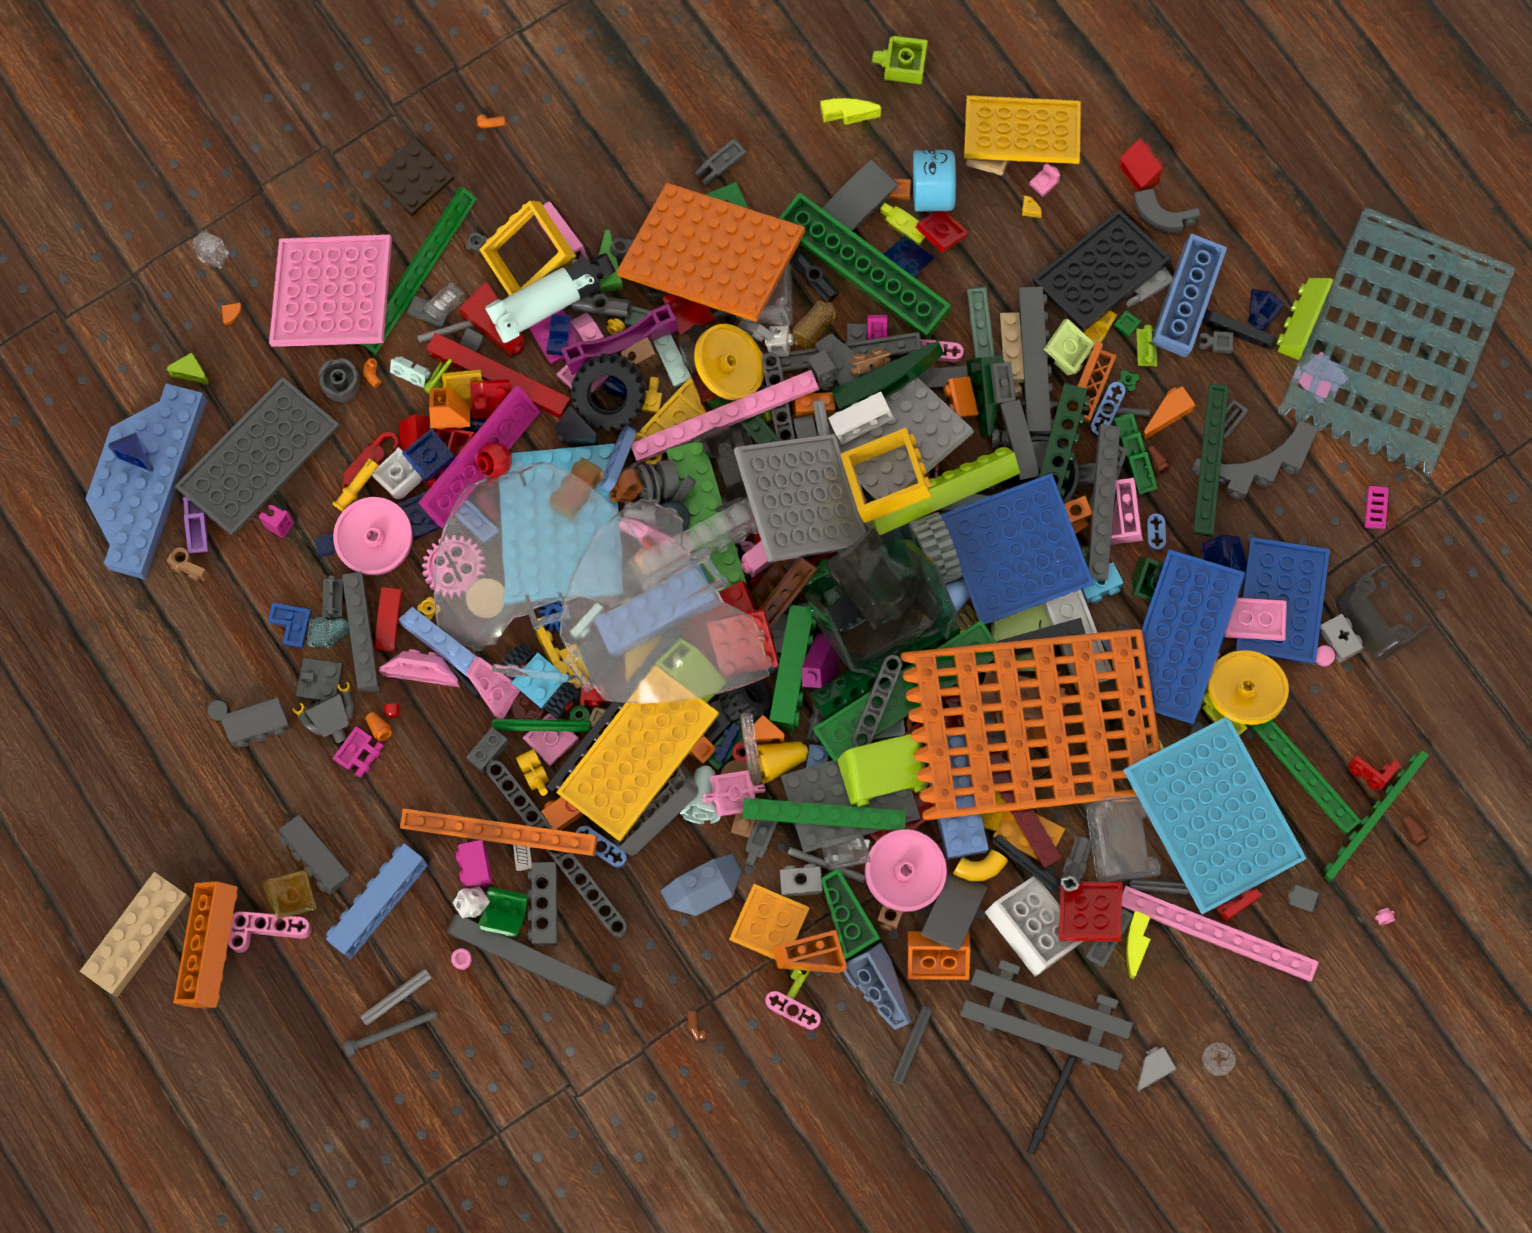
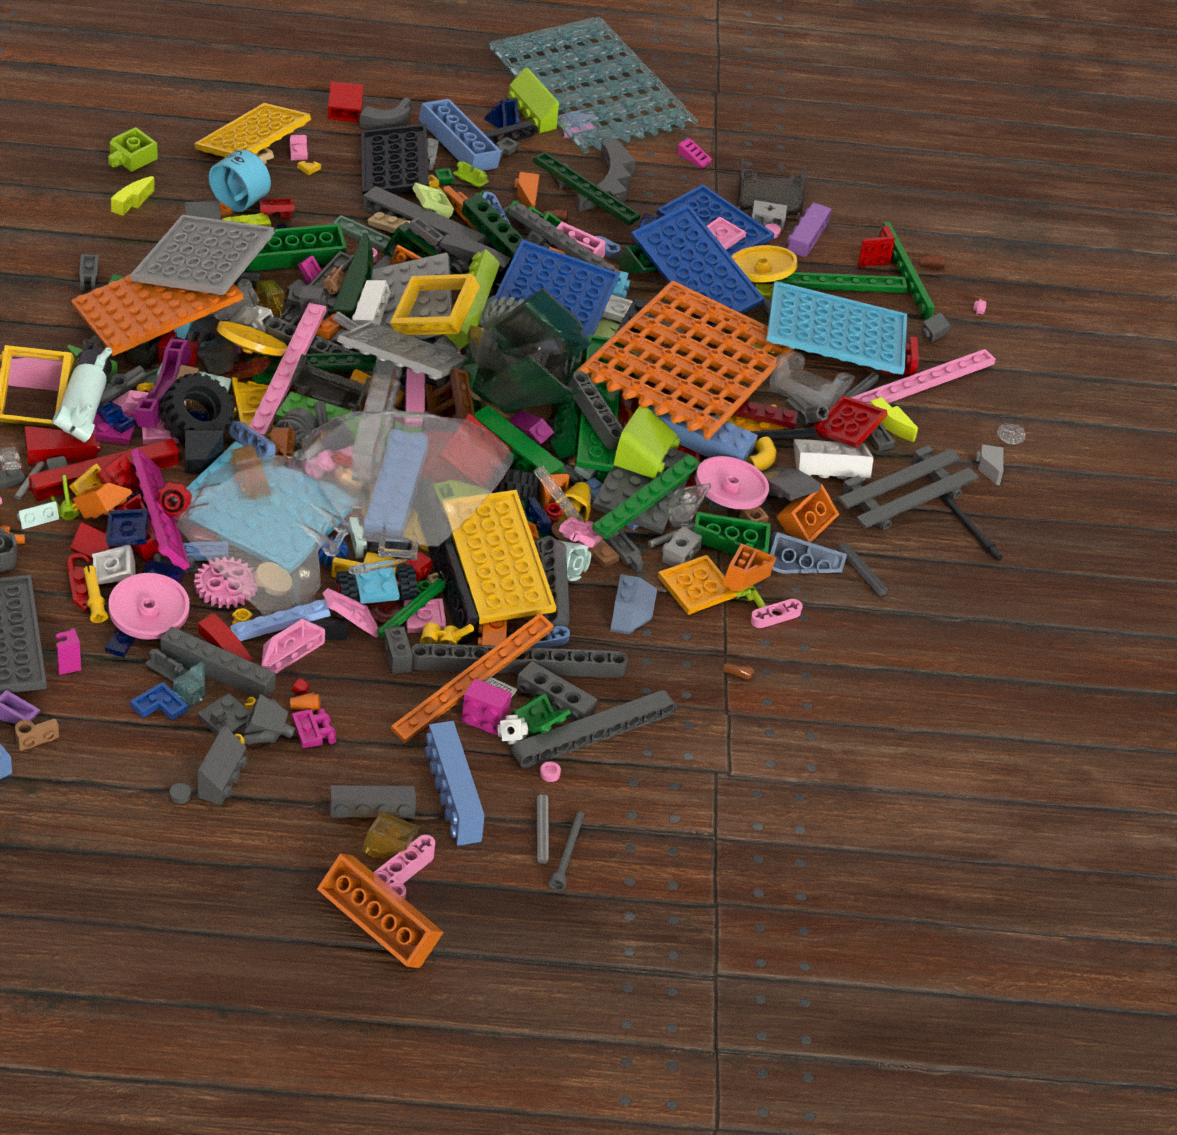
camera: 65 degrees left, 30 degrees down
(135, 934) = (319, 960): tan brick -> none
(780, 245) = (202, 254): none -> light grey plate
(1353, 688) = (809, 229): none -> medium lavender brick

